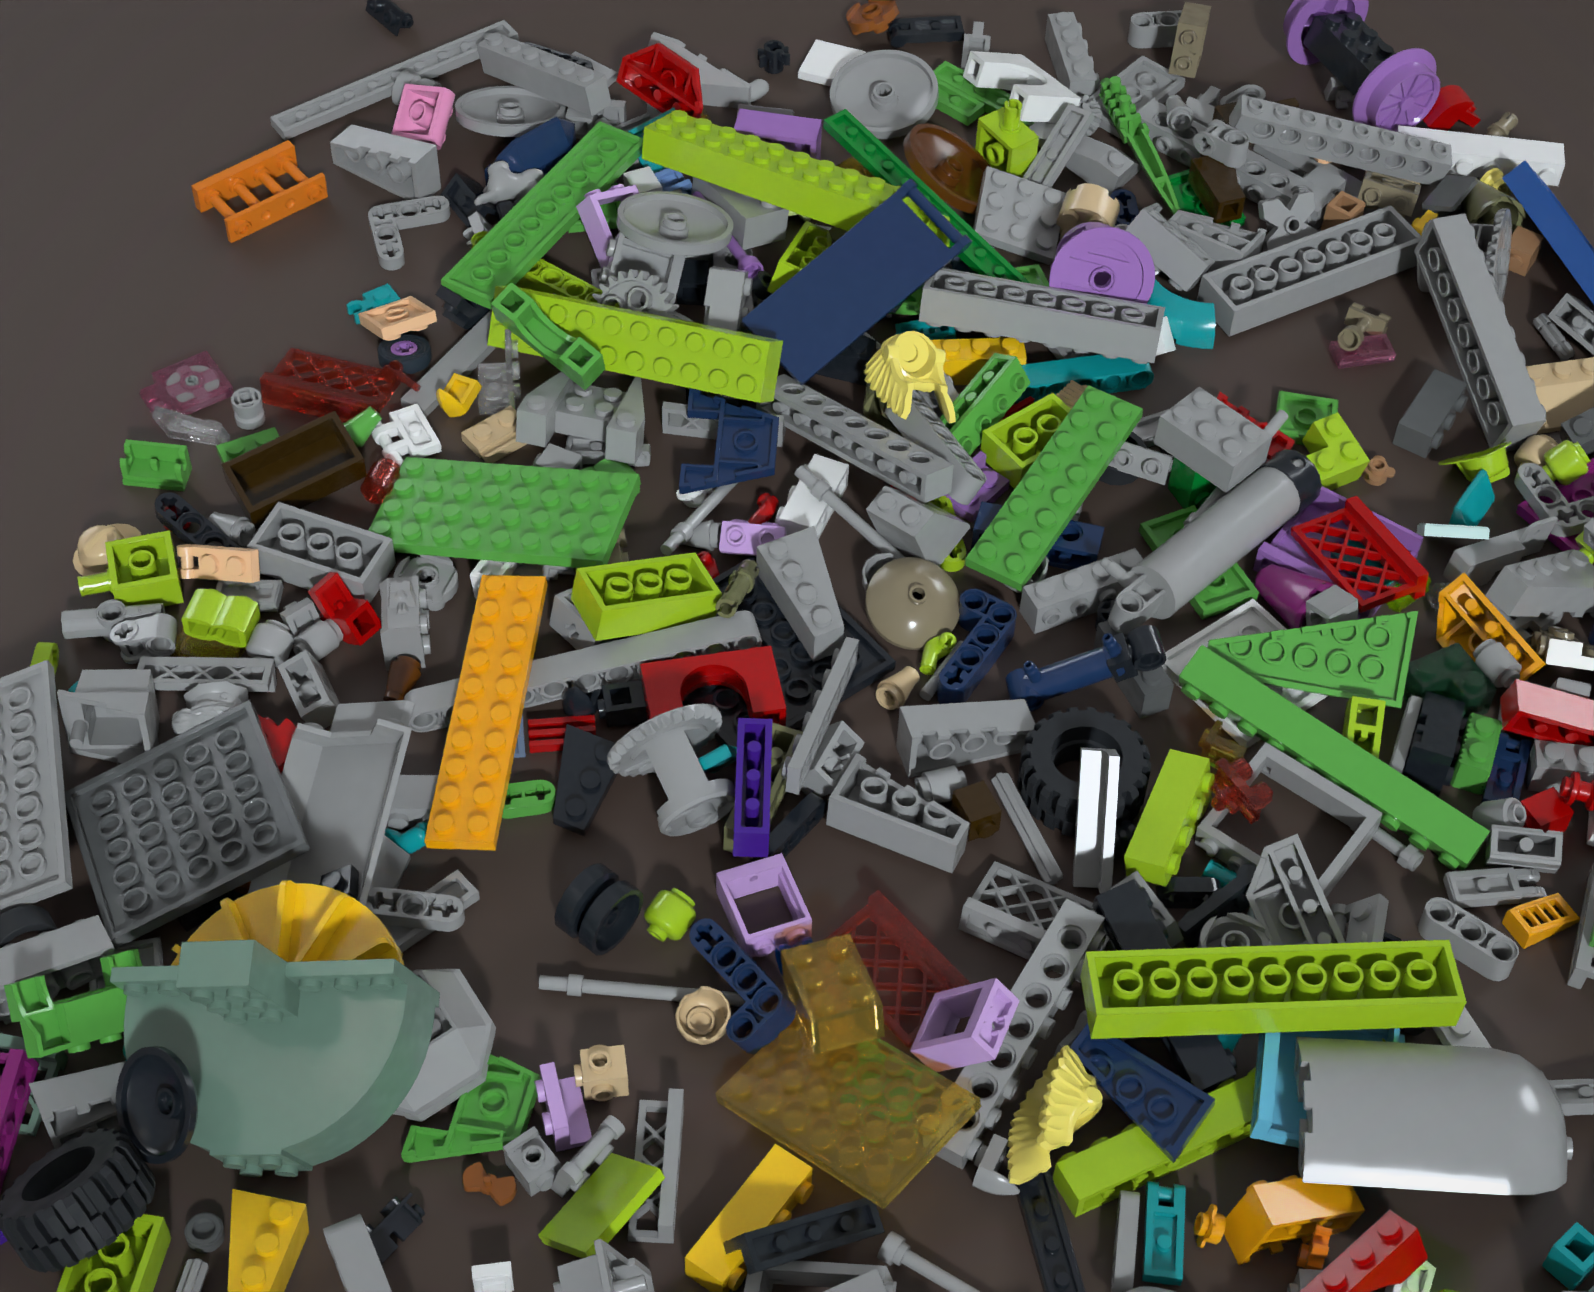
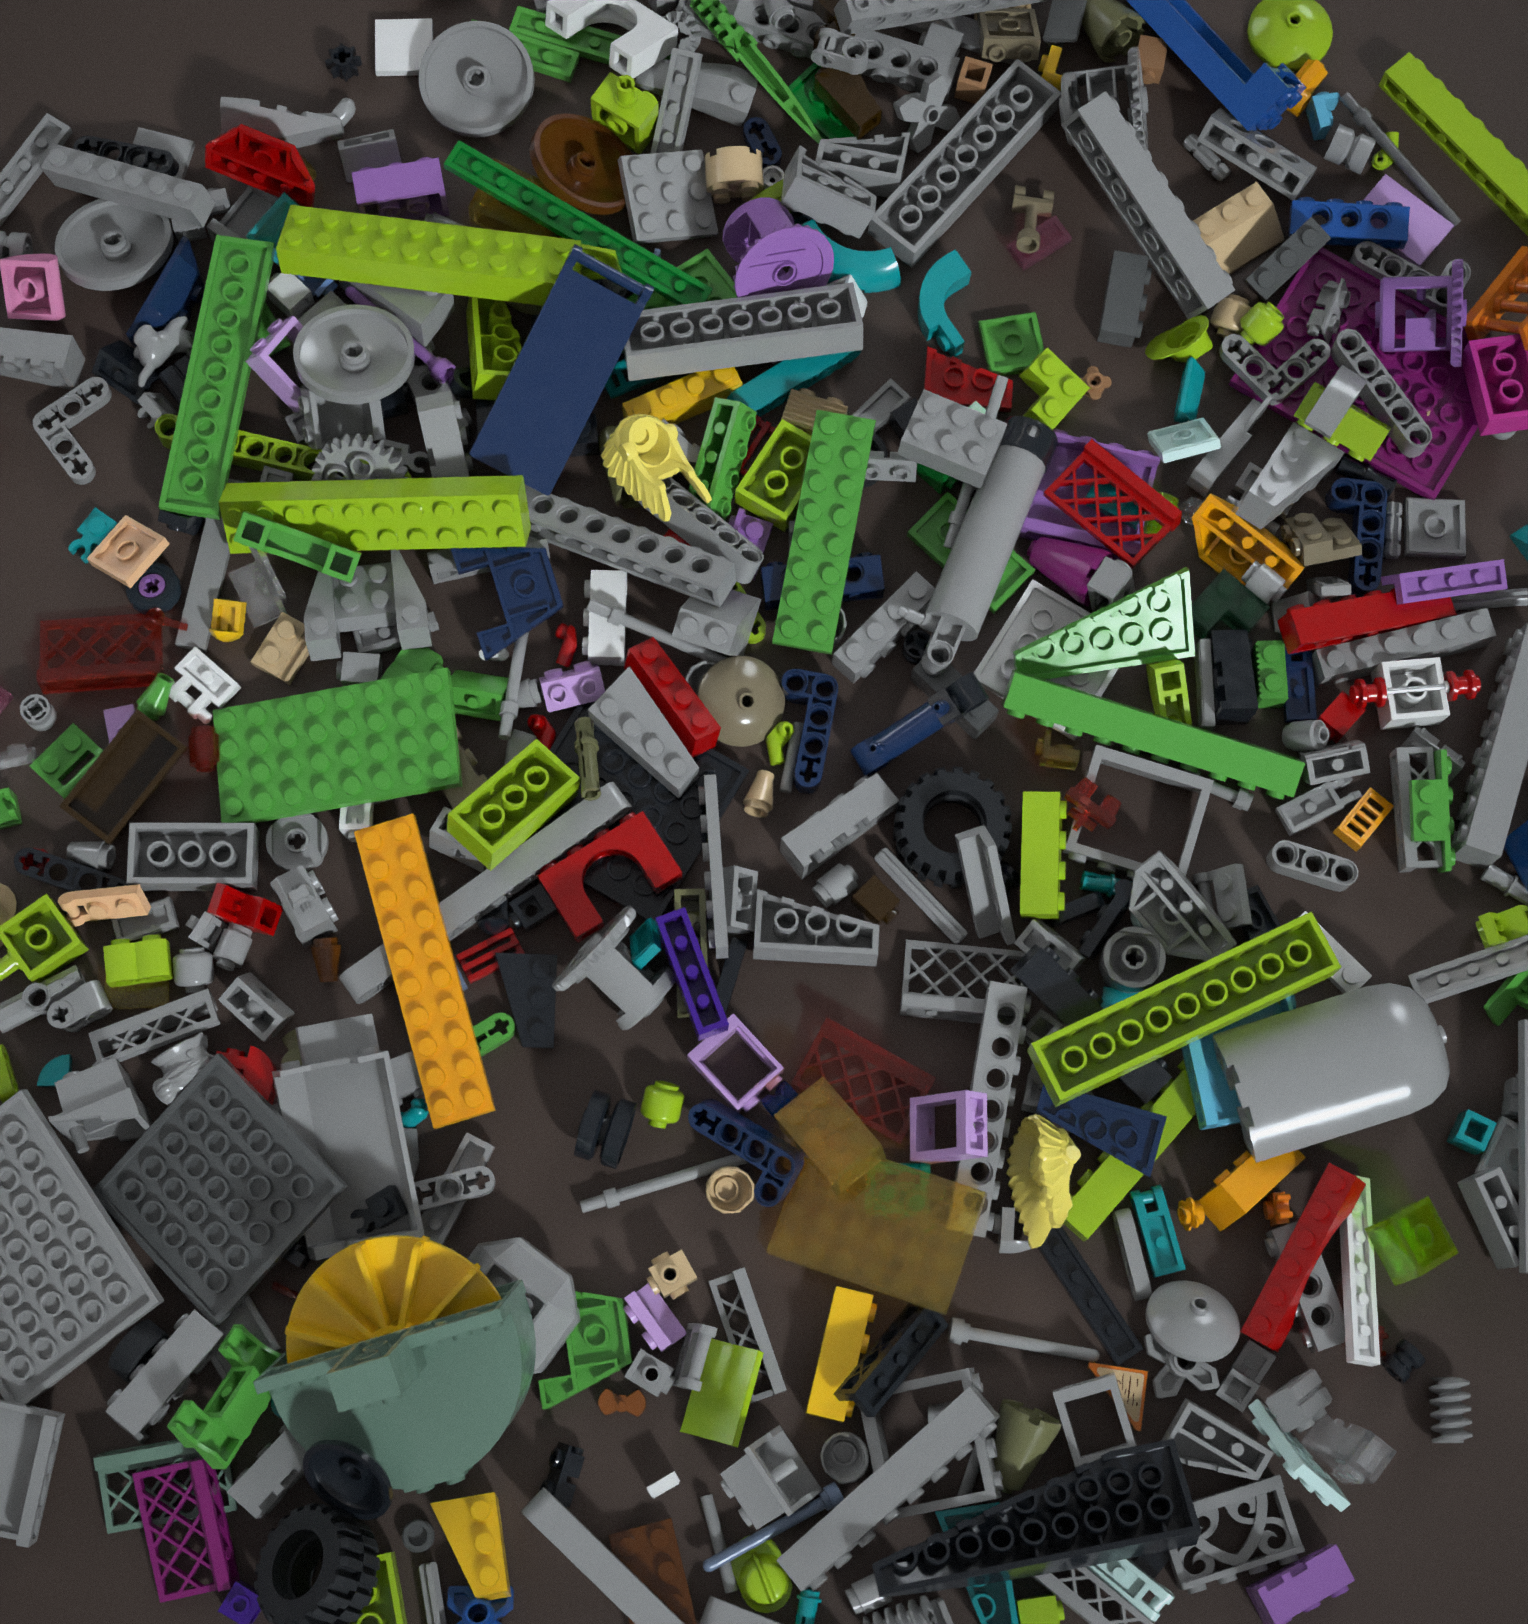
camera: 25 degrees left, 25 degrees up
(652, 519) = (478, 694): none -> bright green panel
(848, 574) = (673, 696): none -> red brick
(1246, 353) = (940, 282): none -> teal arch

